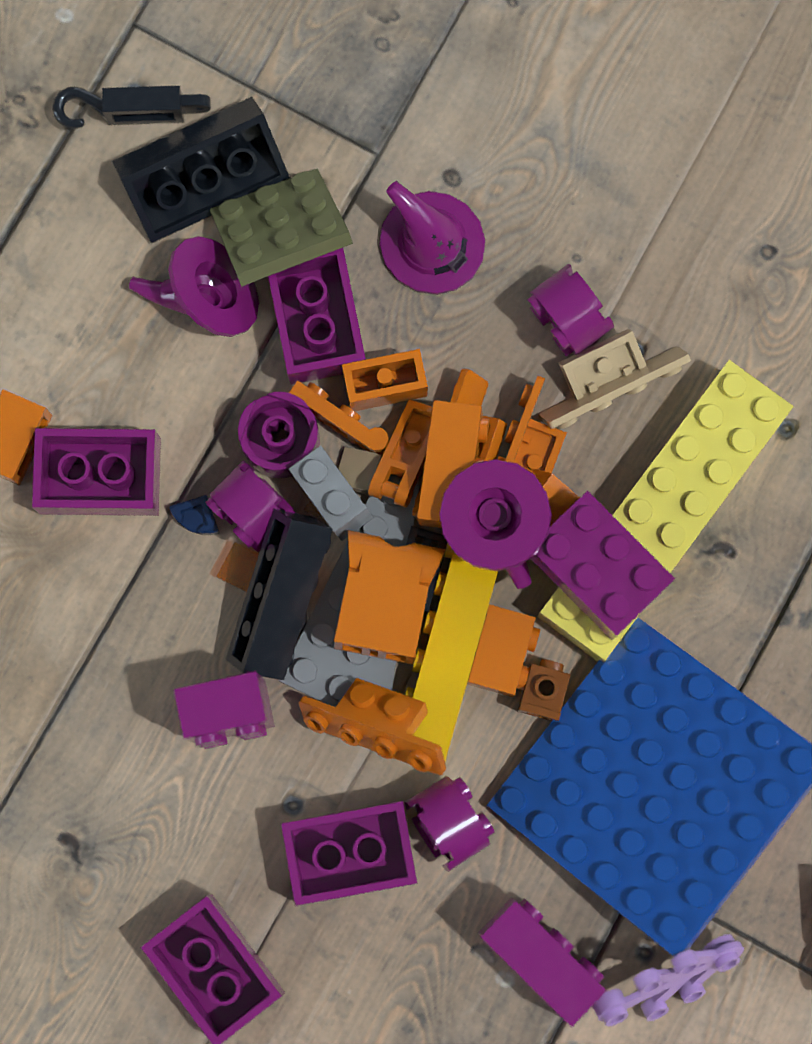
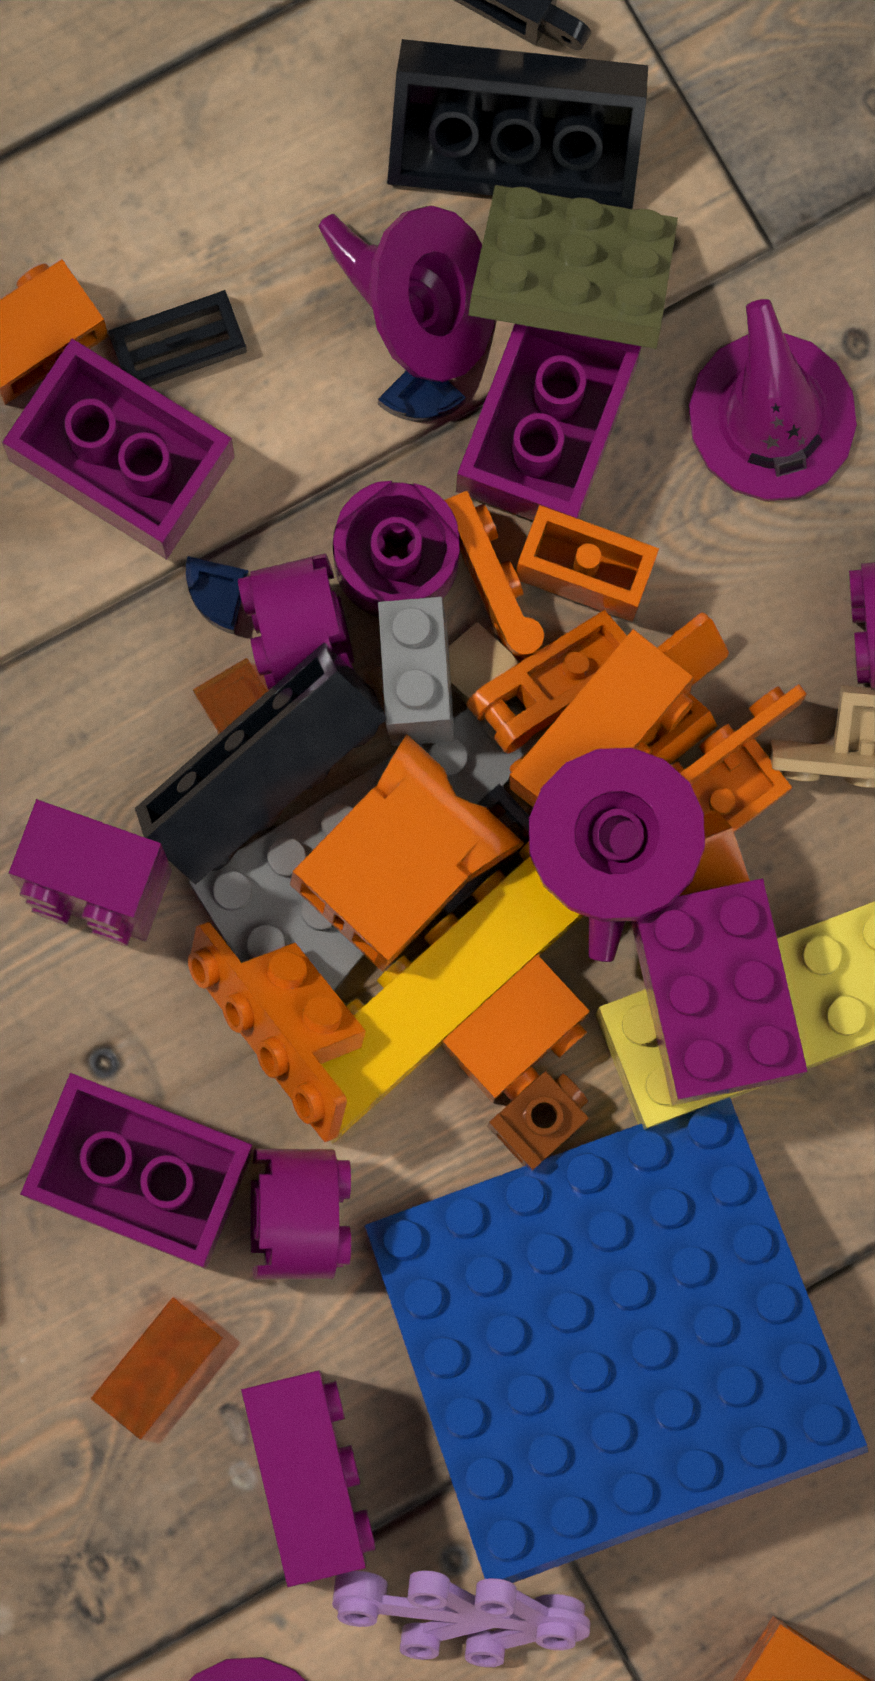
camera: 25 degrees right, 0 degrees up
(104, 403) = (173, 317): none -> black tile
(240, 347) = (420, 399): none -> dark blue tile
(424, 951) = (157, 1368): none -> clear orange tile

